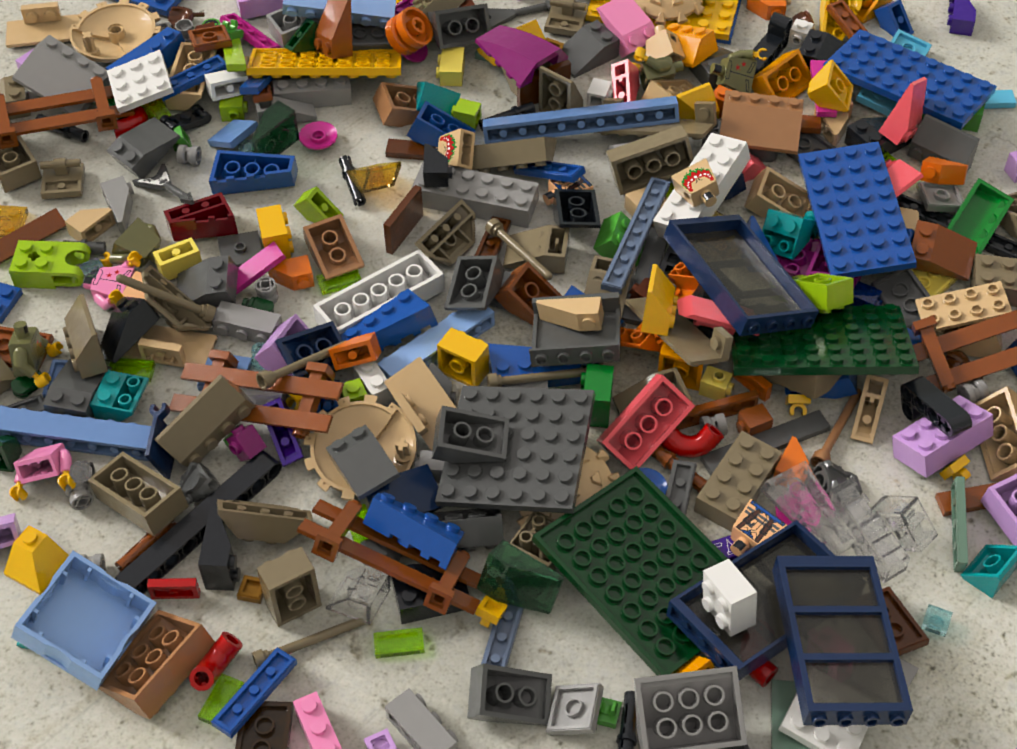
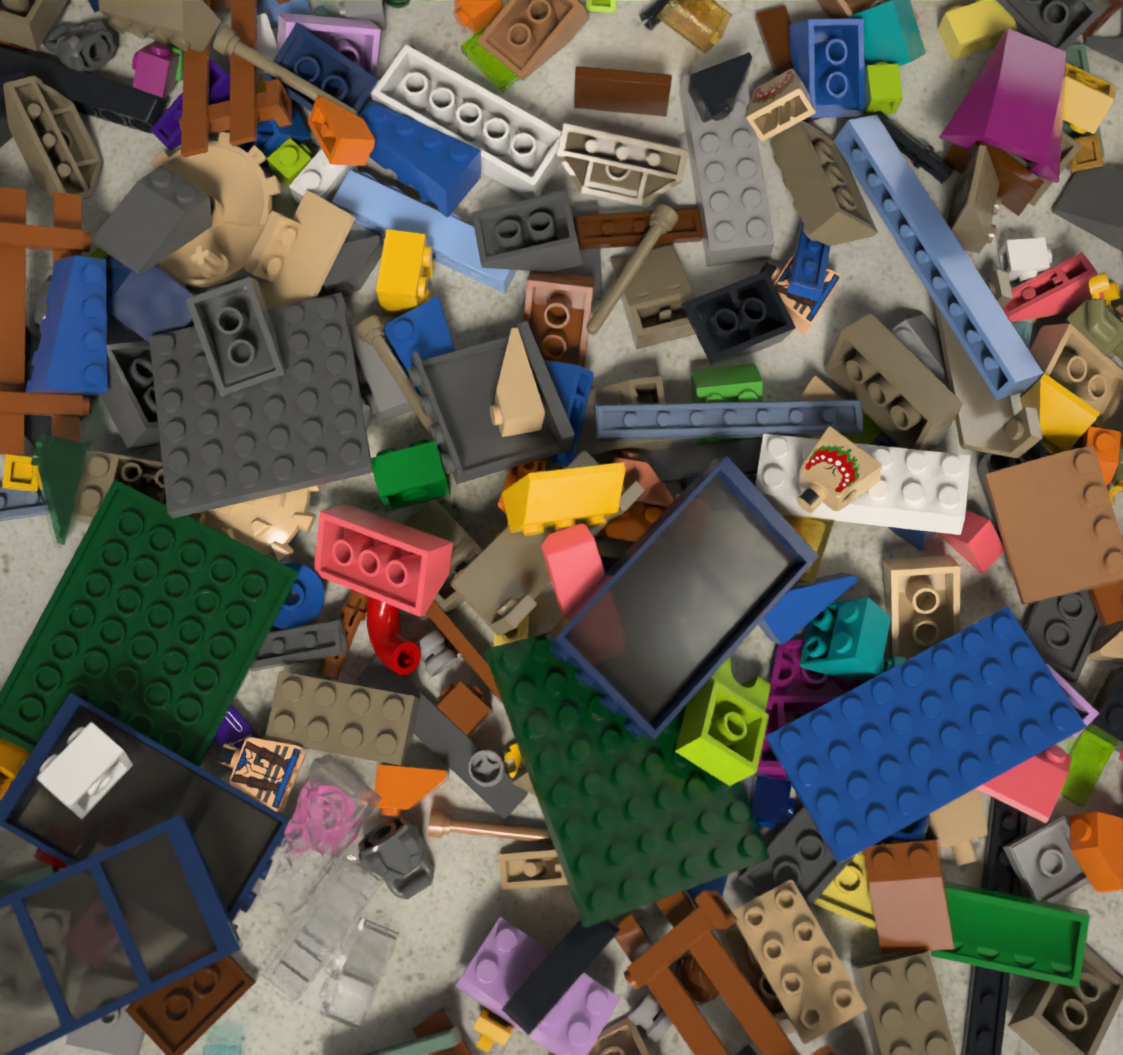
camera: 65 degrees right, 25 degrees up
(798, 417) = (486, 768): none -> light grey wheel

